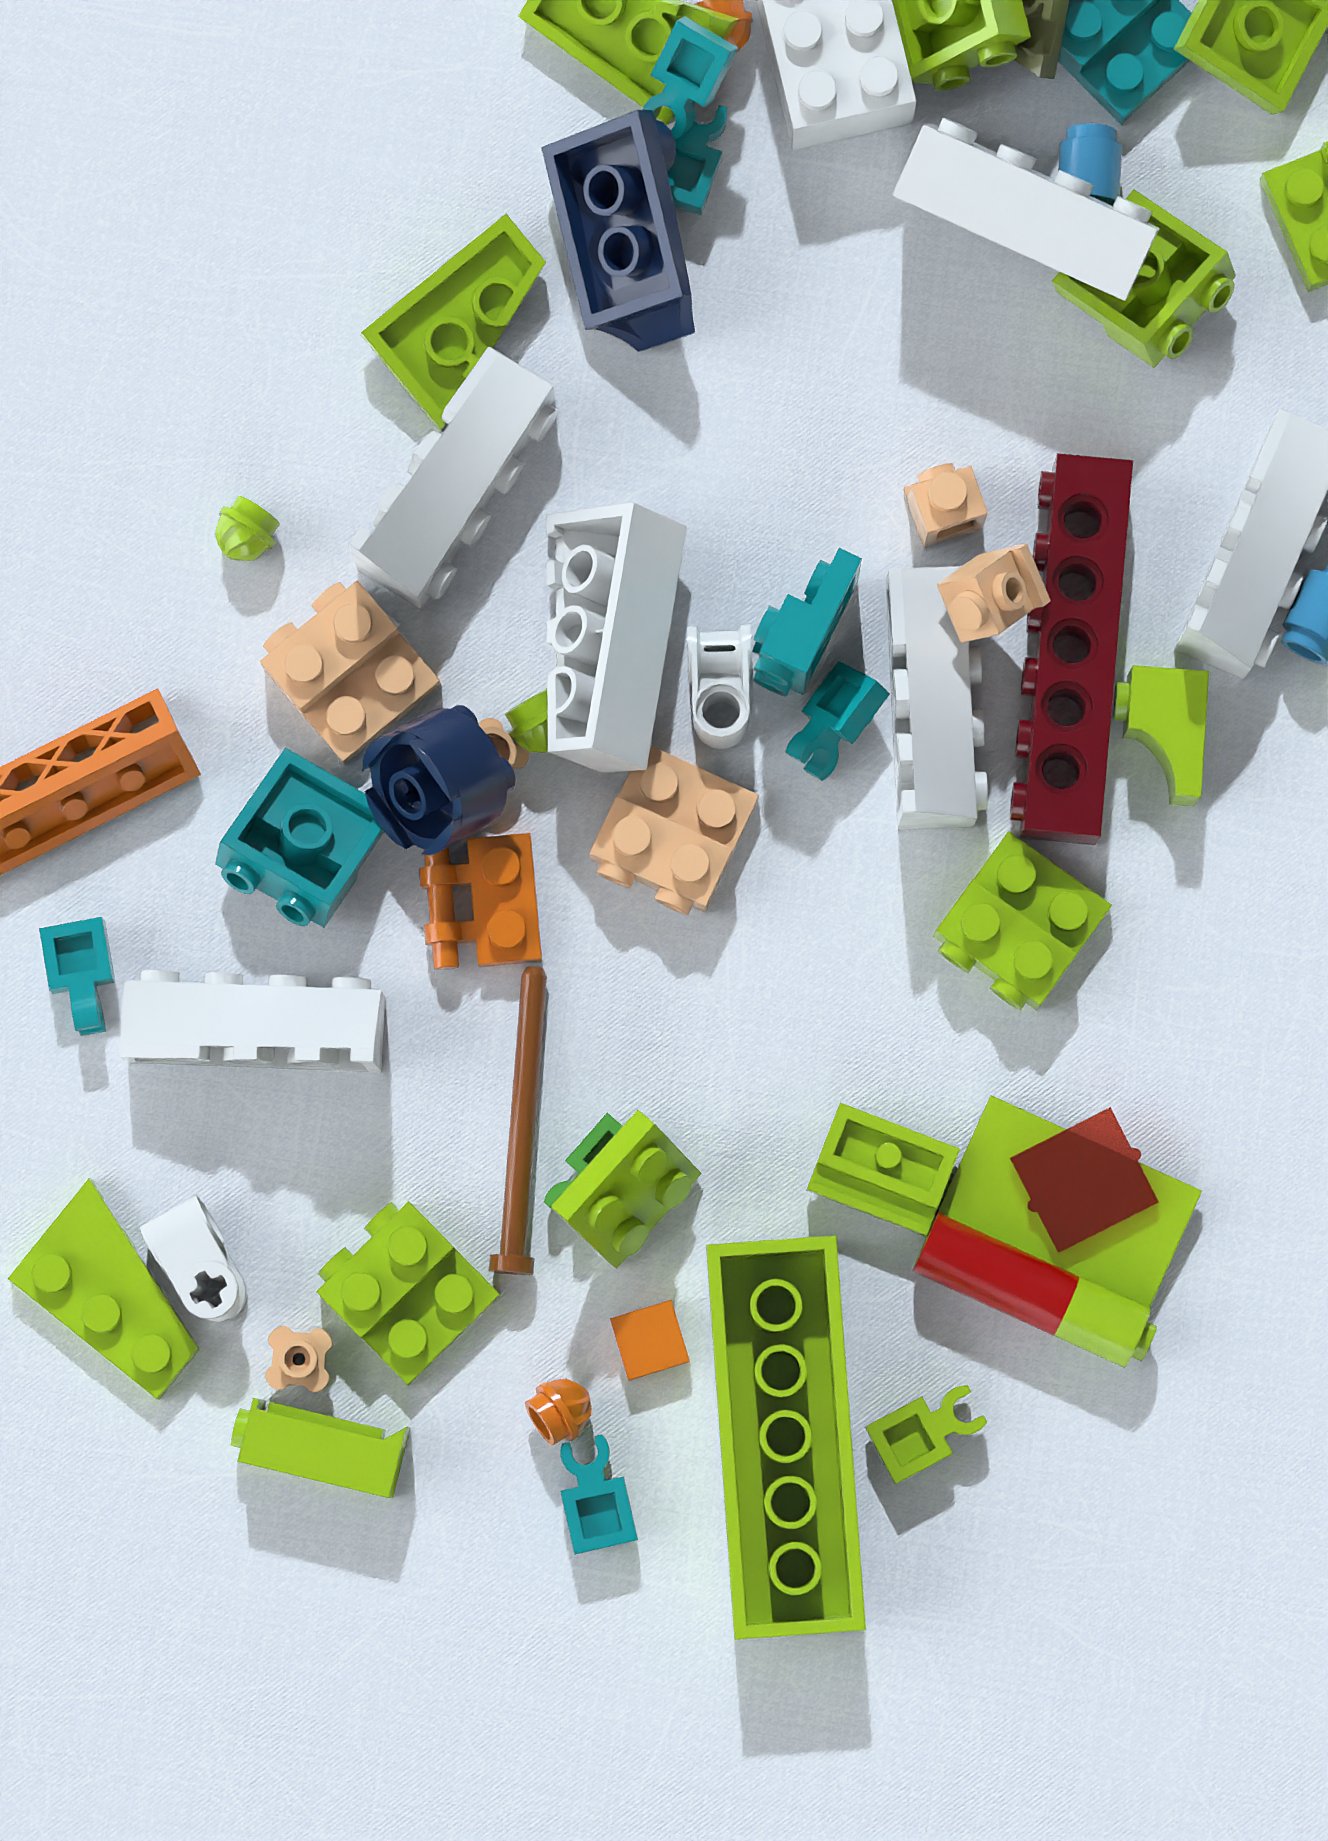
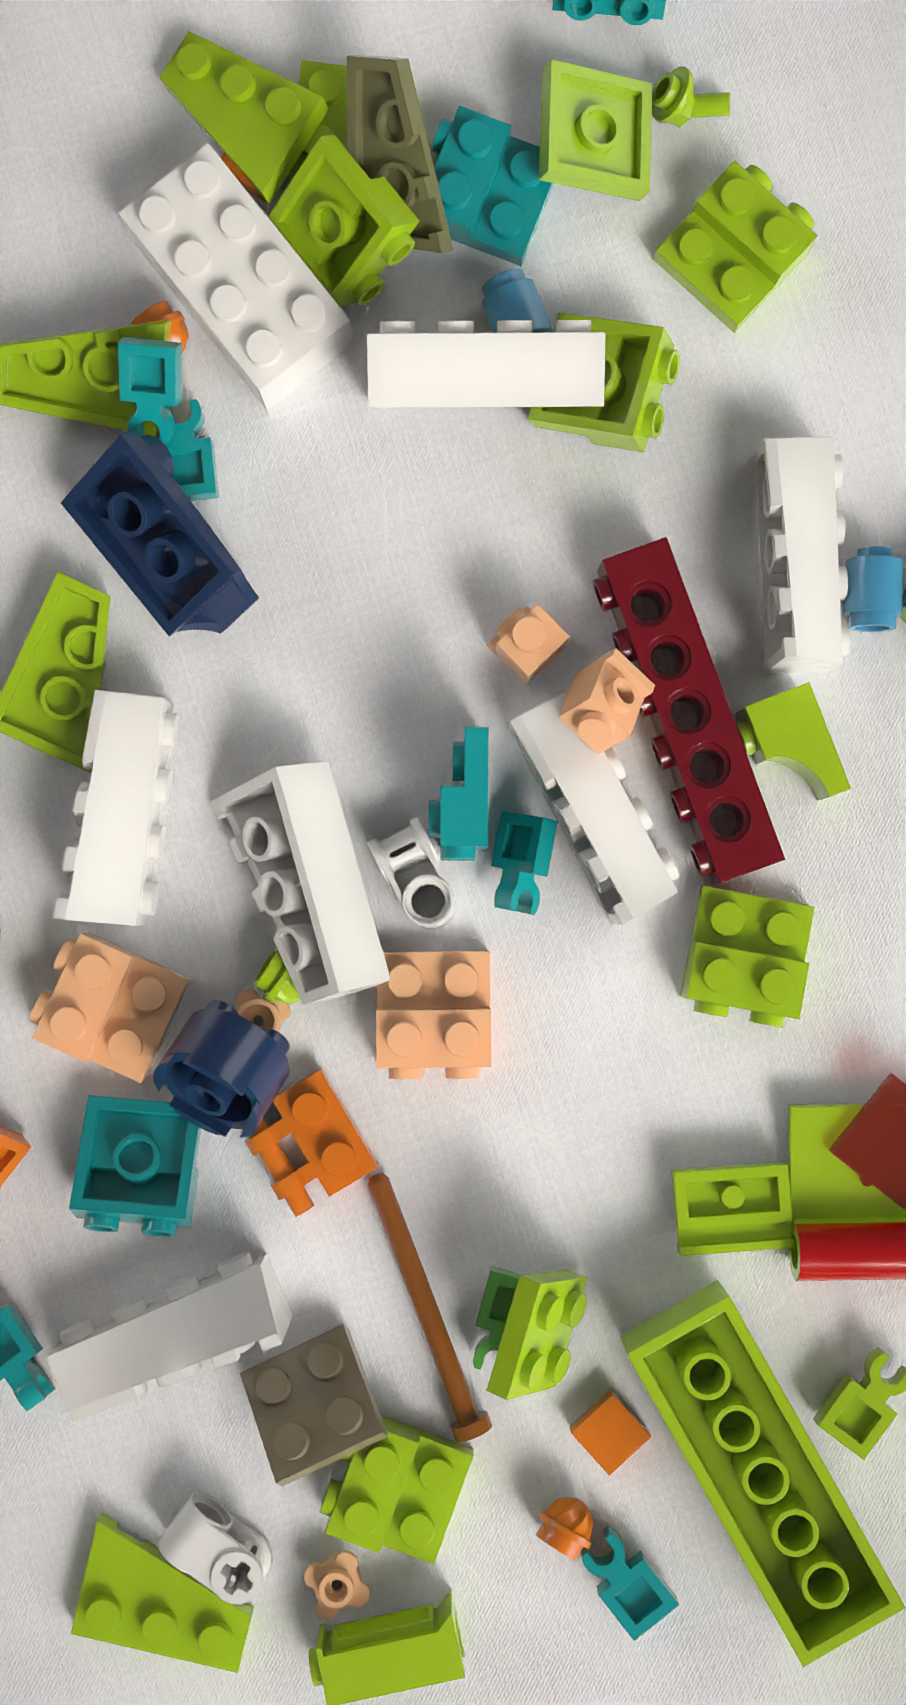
camera: 30 degrees left, 5 degrees up
(364, 1160) = (313, 1405): none -> dark tan plate

